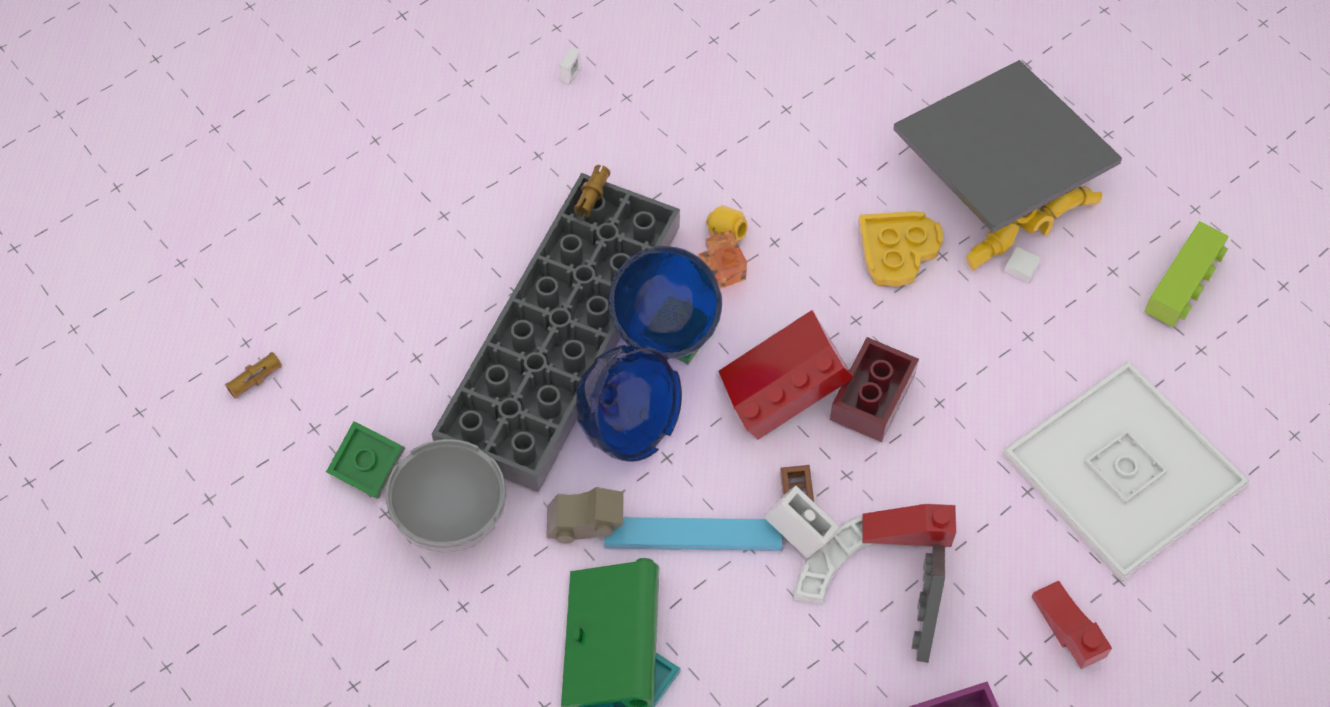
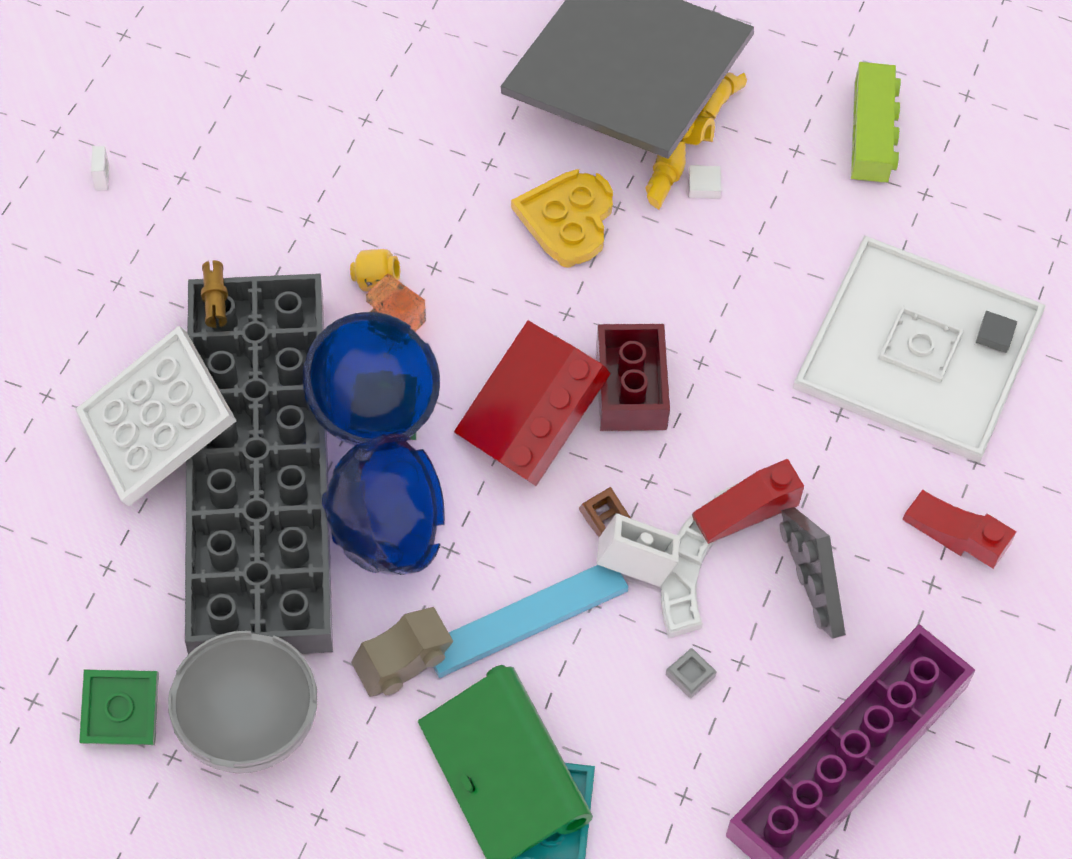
camera: 30 degrees left, 0 degrees up
(502, 261) = (154, 416): none -> white plate
(794, 634) = (691, 673): none -> light grey tile
(1193, 484) = (996, 331): none -> dark grey tile

